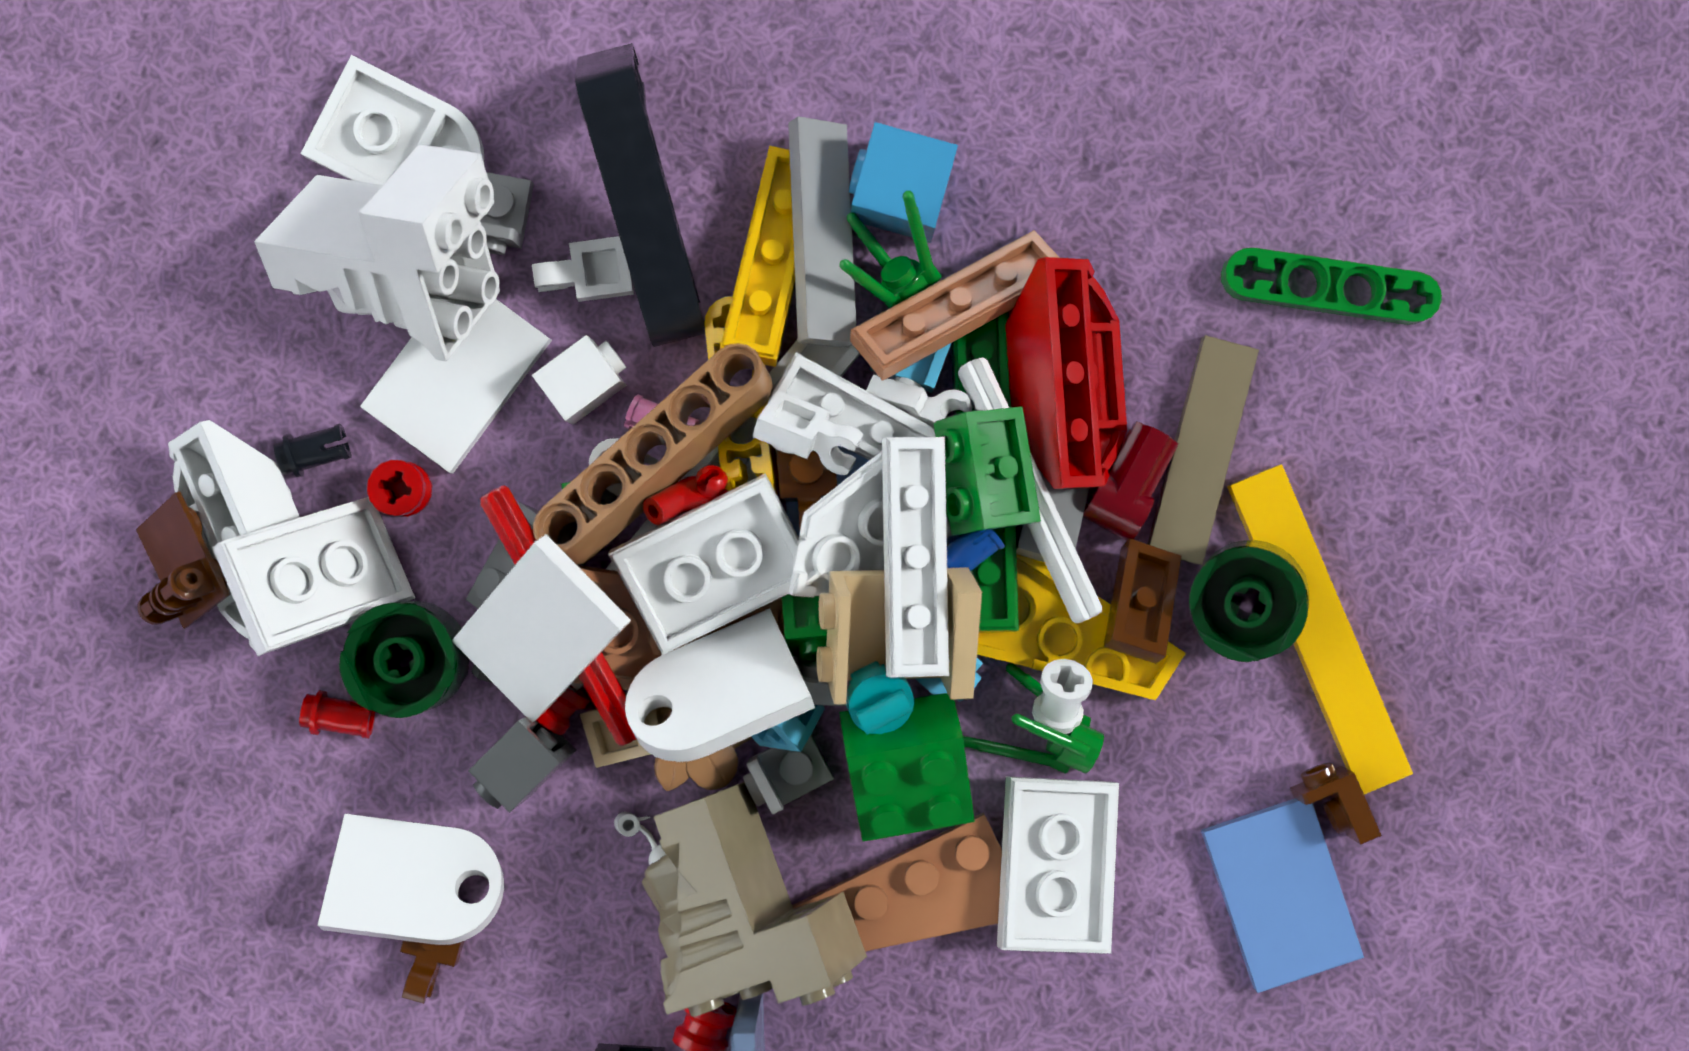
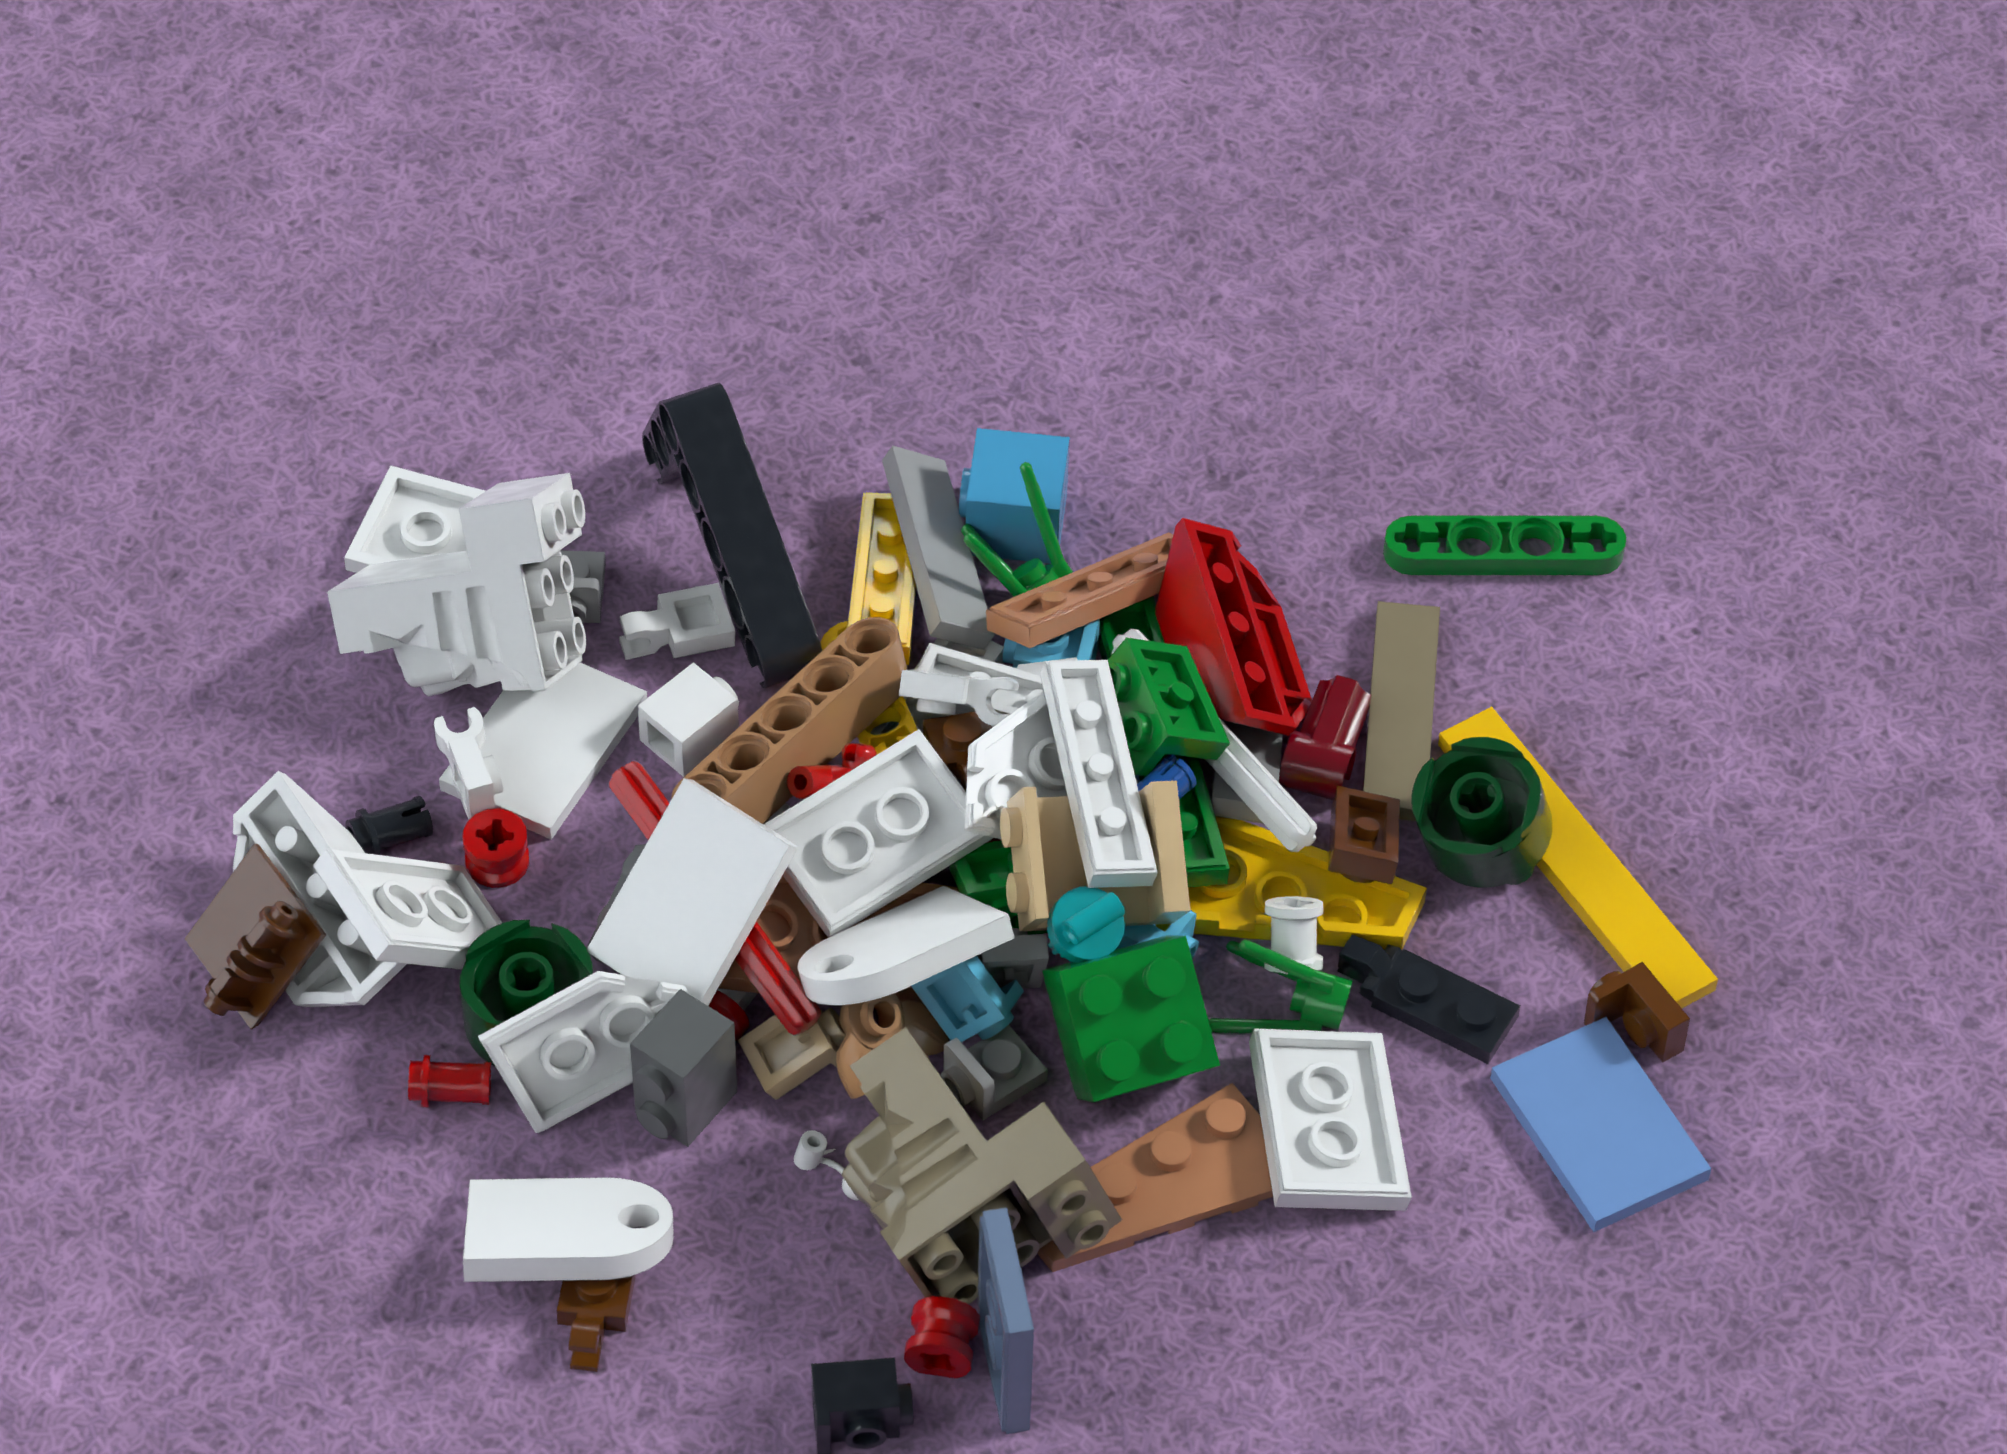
camera: 10 degrees left, 35 degrees down
(381, 425) = (473, 775): none -> white plate
(436, 728) = (574, 1044): none -> white tile
(1168, 752) = (1429, 997): none -> black hinge

